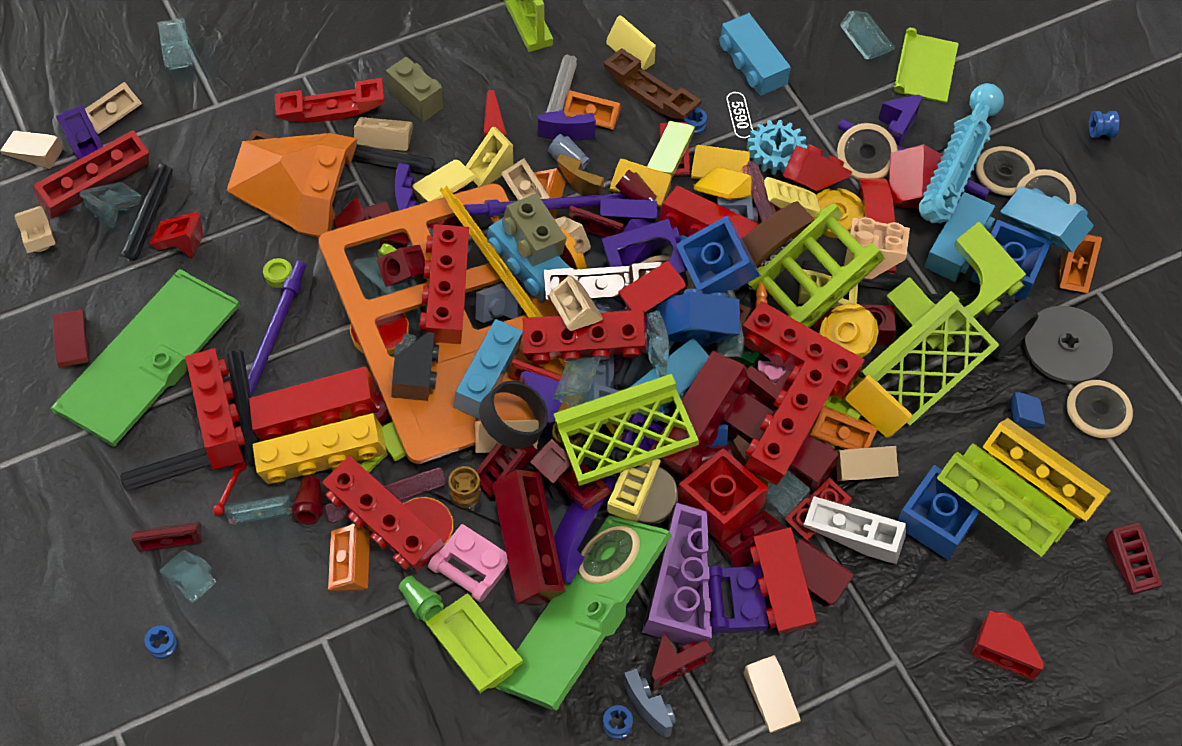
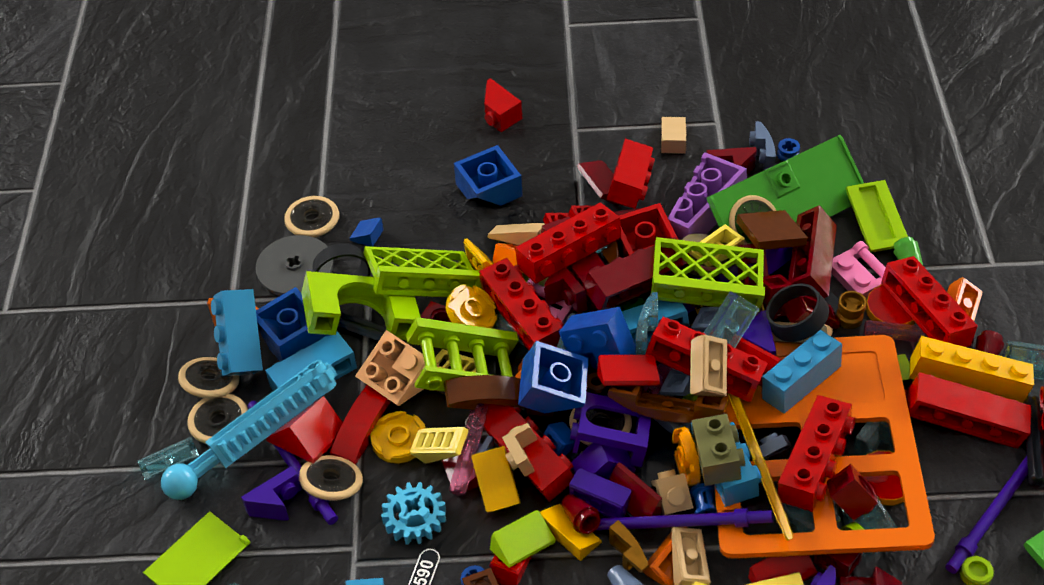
camera: 150 degrees left, 10 degrees down
(413, 371) = (871, 386): black slope -> none
(582, 527) = (771, 230): none -> reddish brown tile
(710, 157) = (475, 519): yellow slope -> none
(712, 195) = (515, 442): none -> tan bracket
(746, 600) = (661, 186): dark purple plate -> none
(813, 170) = (396, 467): red slope -> none
(857, 529) = (554, 186): white slope -> none
(1006, 499) = (457, 158): lime fence -> none
(1019, 122) = (161, 460): none -> clear light blue slope
(1046, 469) = (391, 182): yellow brick -> none
(1104, 124) = (95, 422): blue wheel -> none
(1138, 543) = (371, 128): dark red slope -> none

